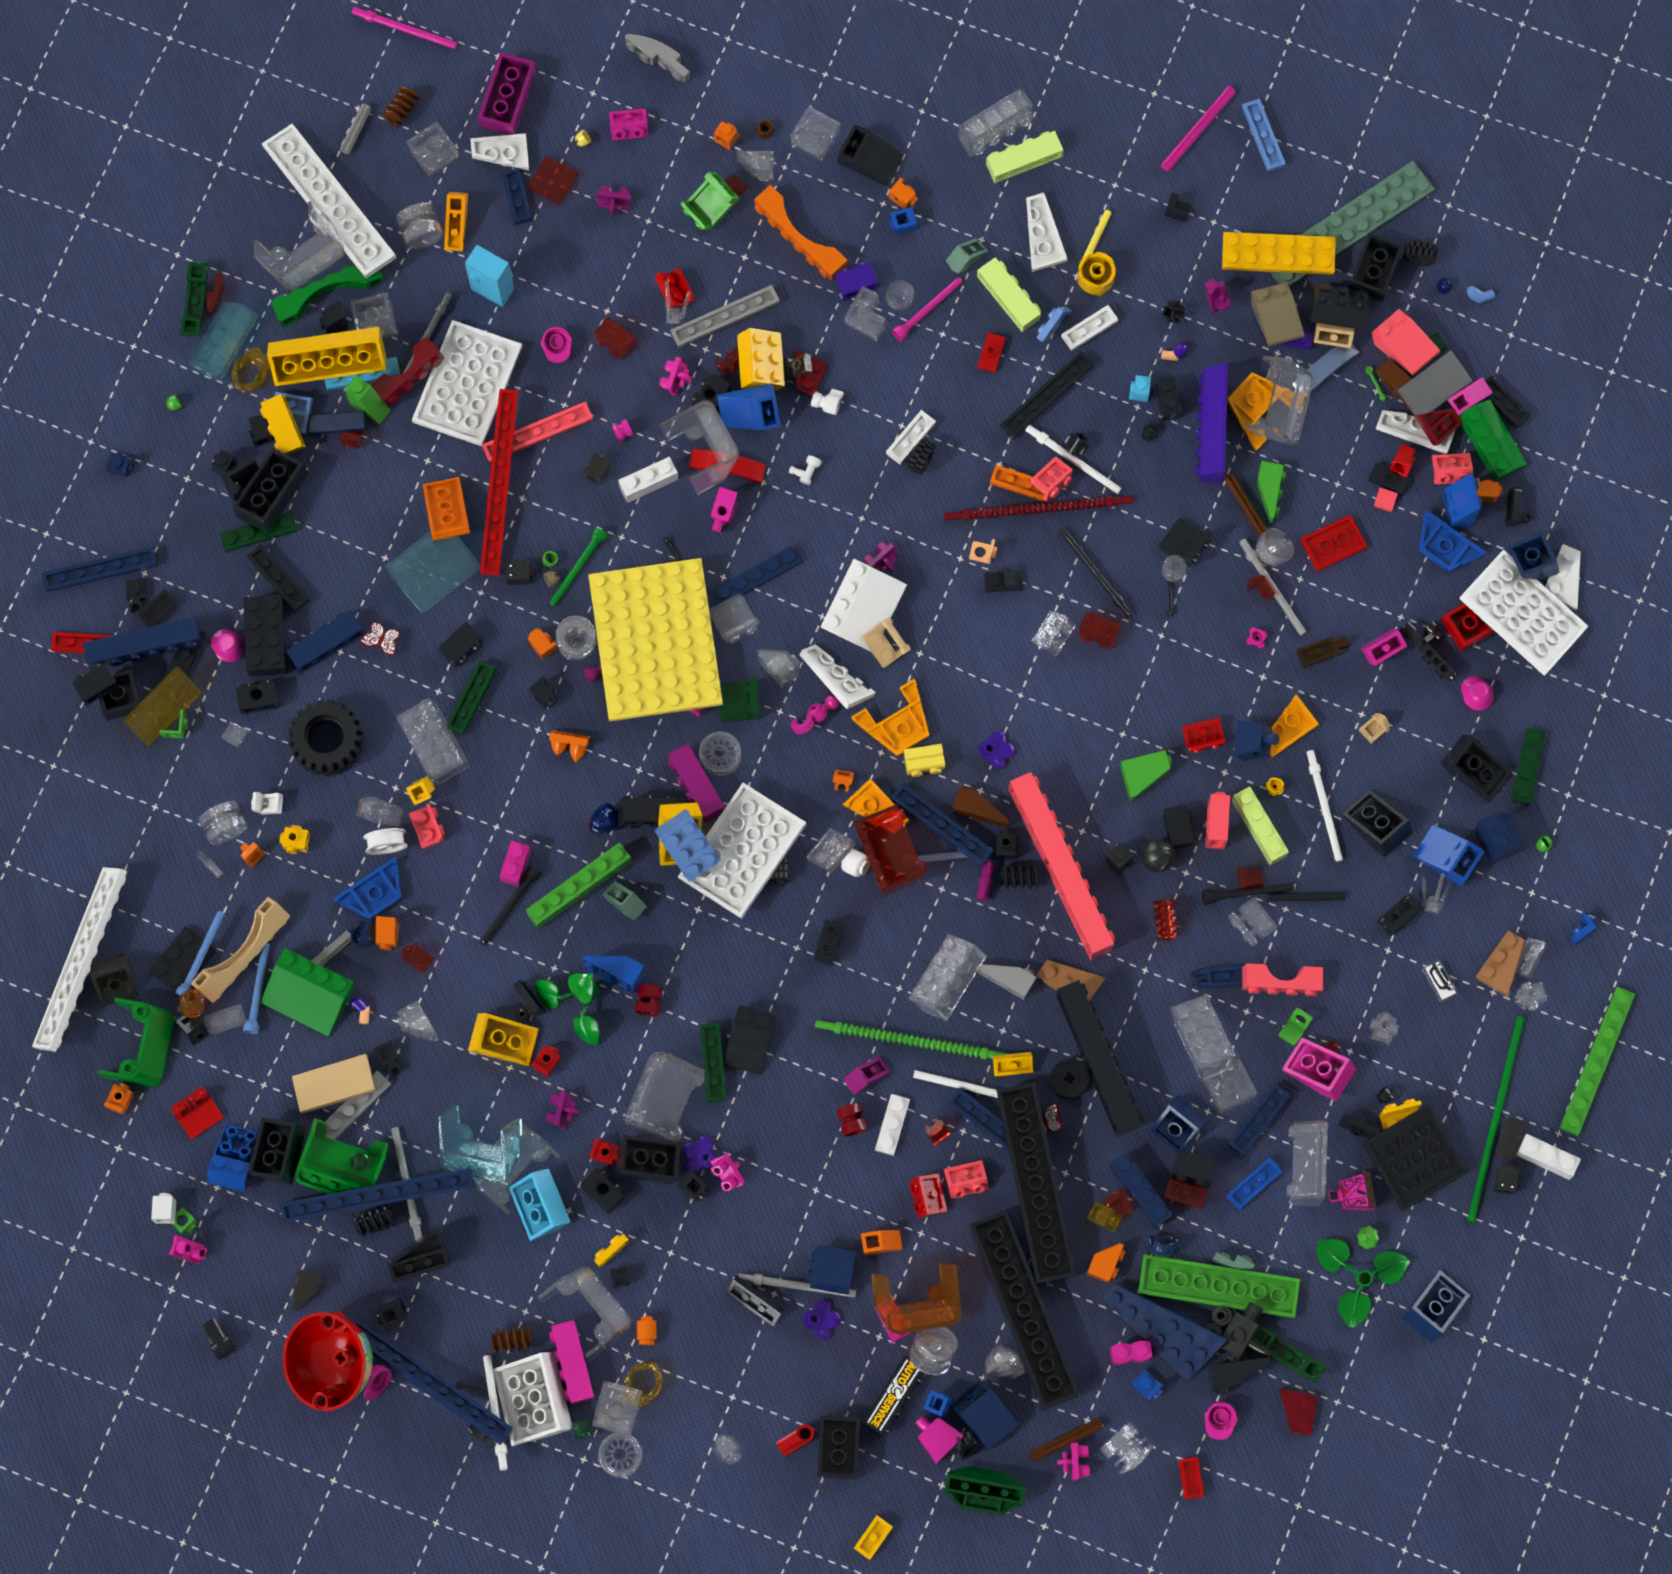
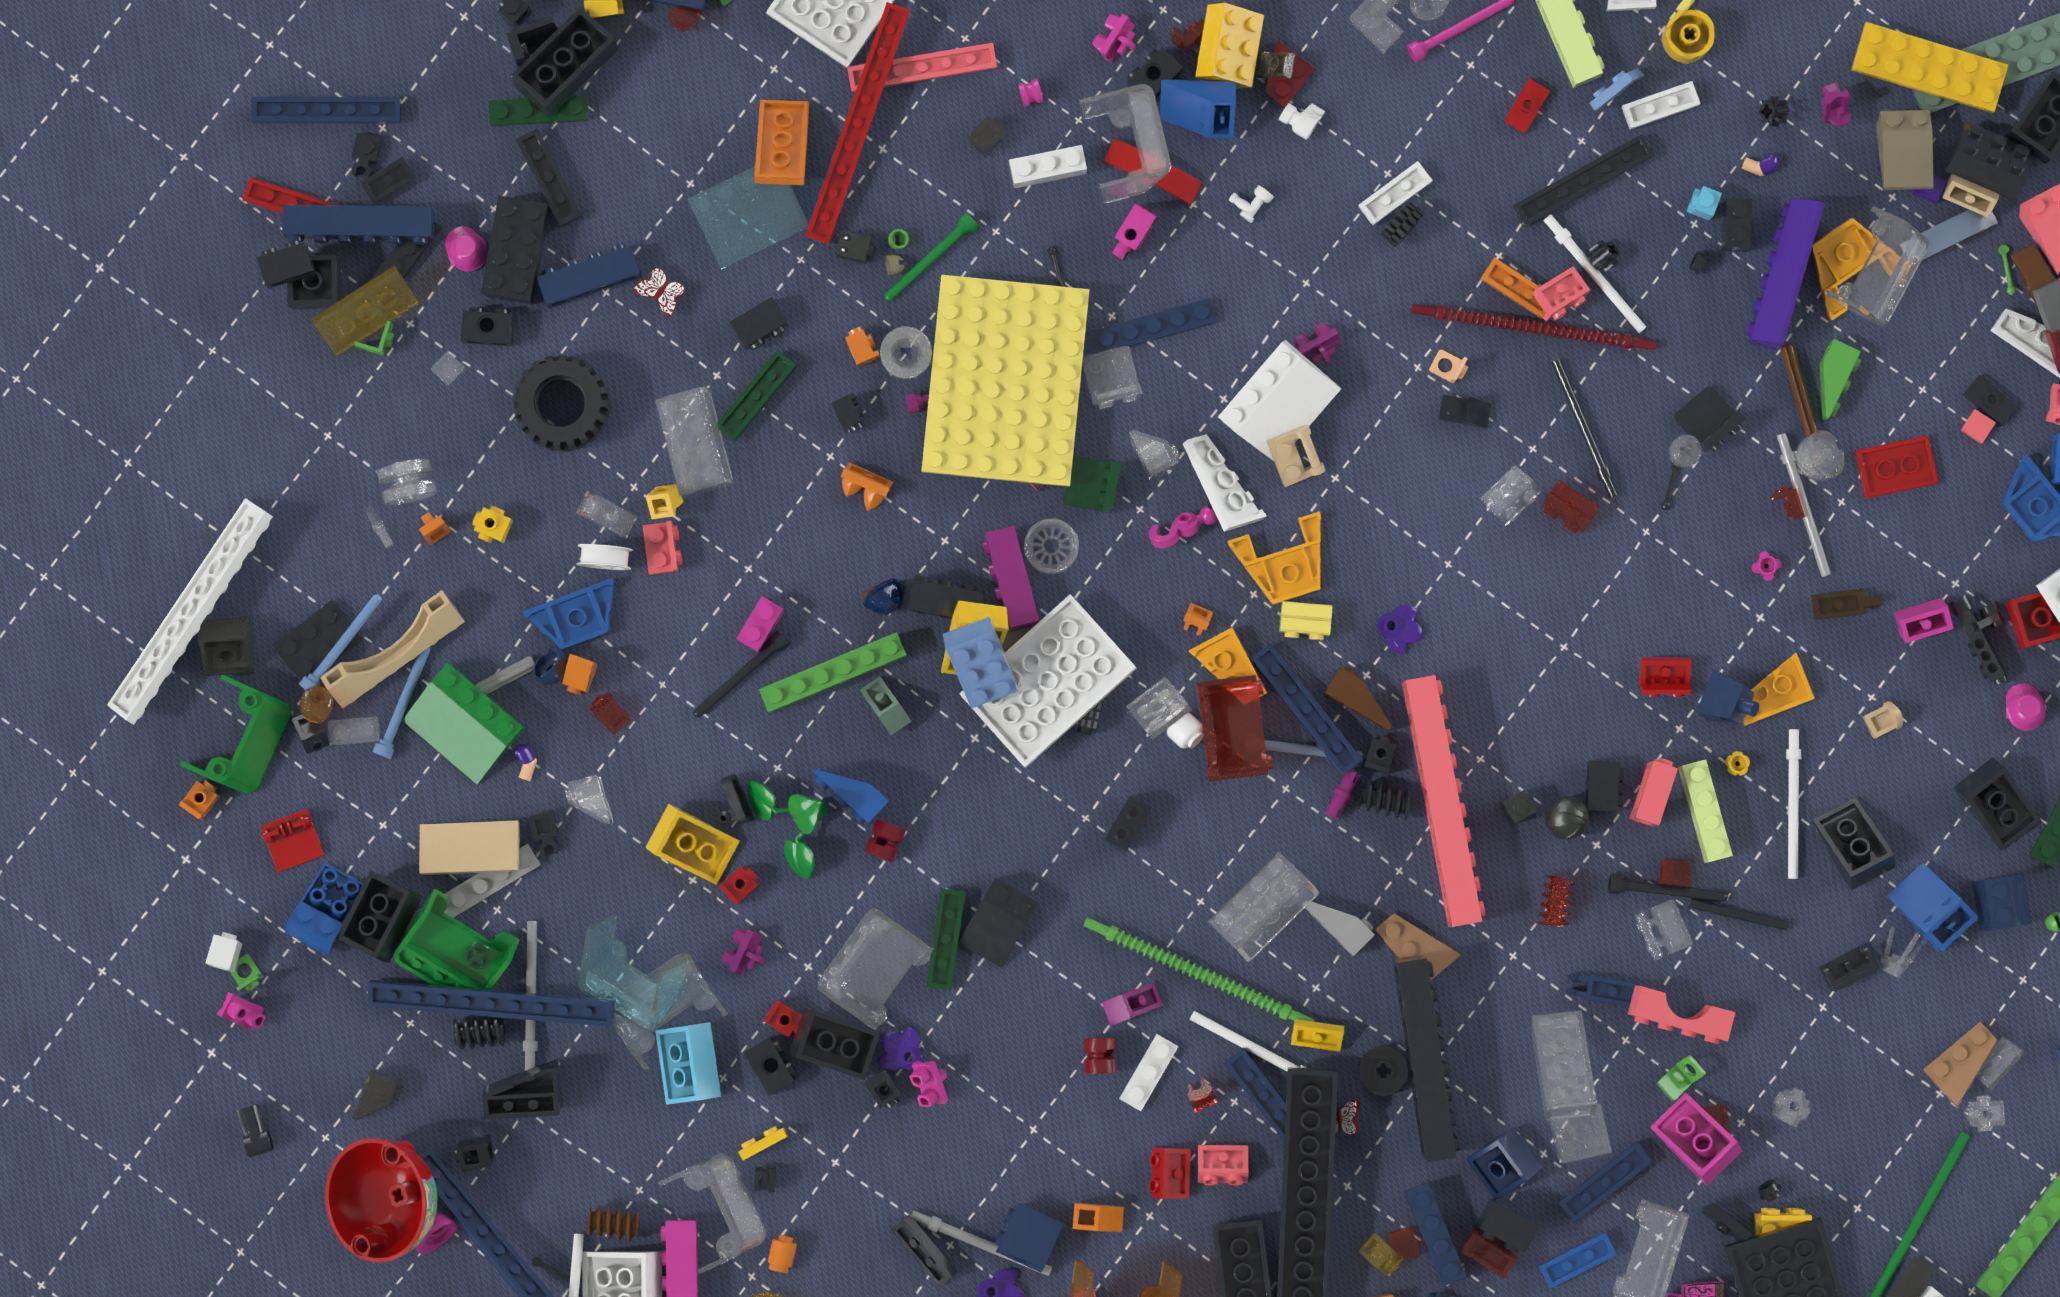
camera: 10 degrees right, 10 degrees up
(267, 803) = (468, 468): white bracket -> none
(1144, 772) = (1578, 704): bright green slope -> none
(1403, 460) = (2014, 382): red brick -> none
(1440, 981) = (1877, 1063): tile -> none

